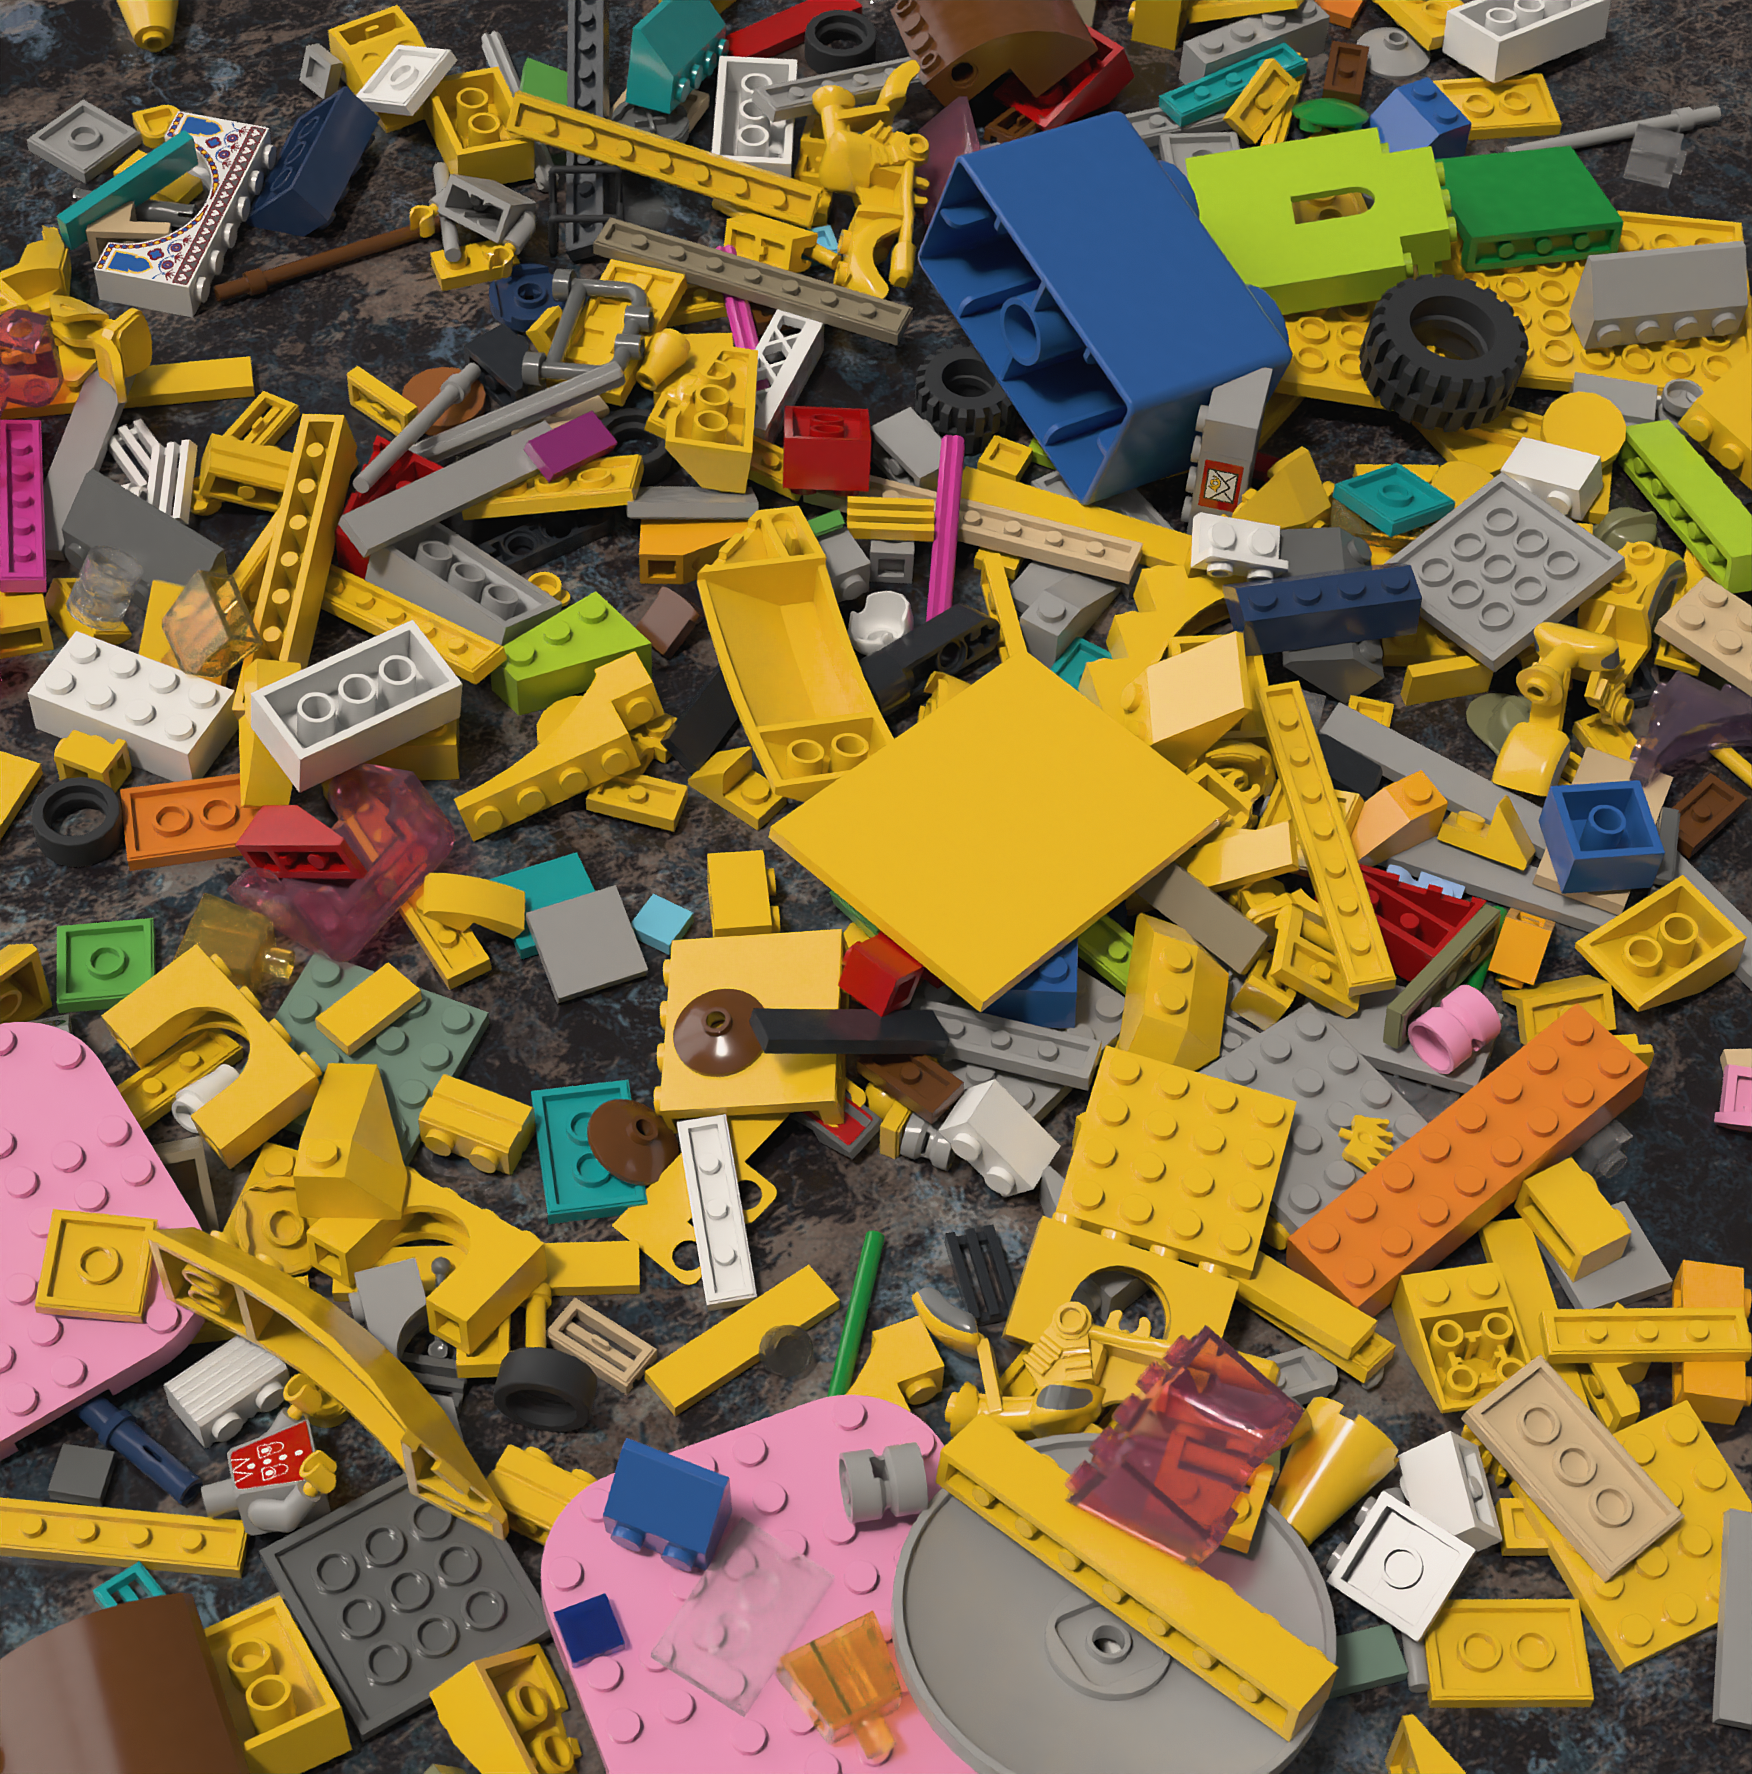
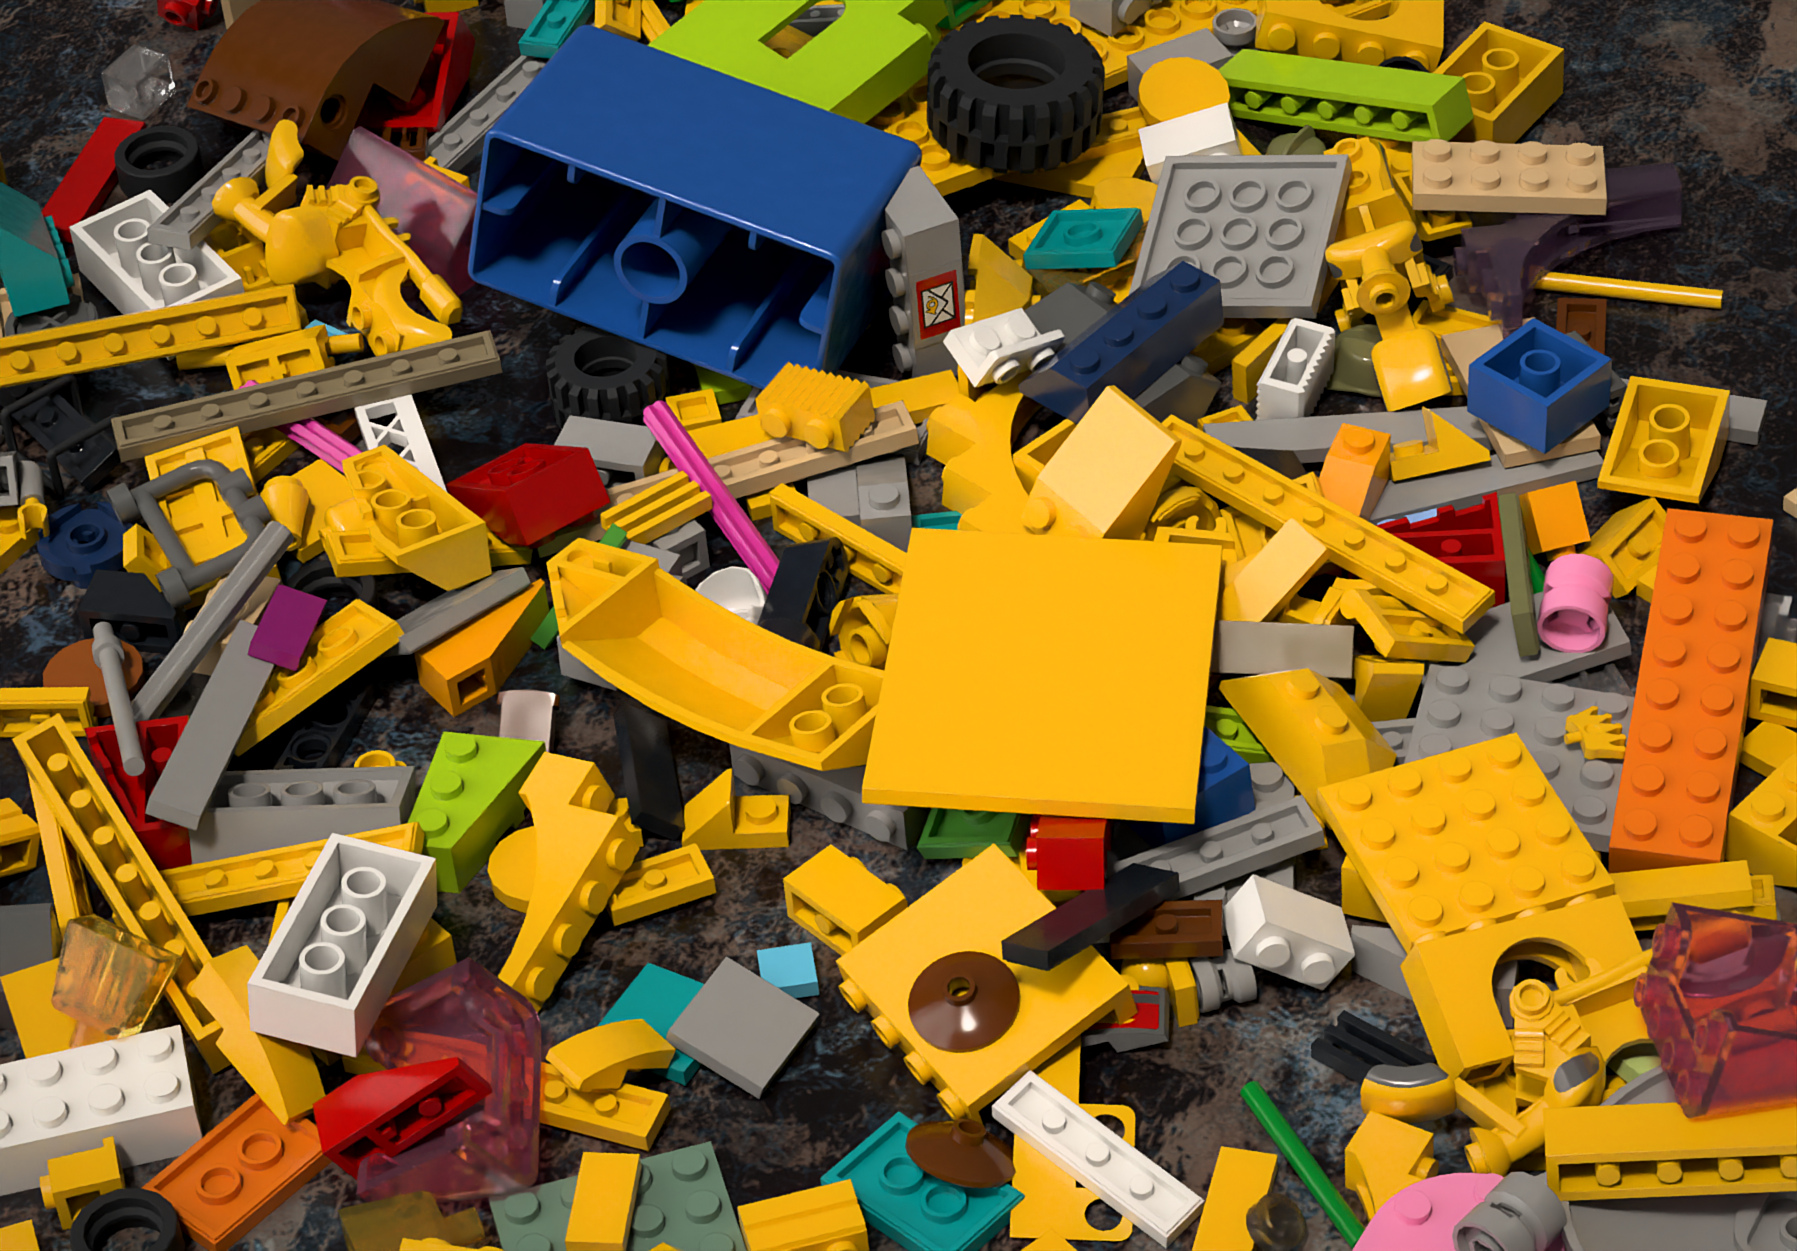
camera: 30 degrees left, 10 degrees down
(1068, 511) = (815, 407): none -> yellow brick
(1446, 706) = (1296, 371): none -> white brick

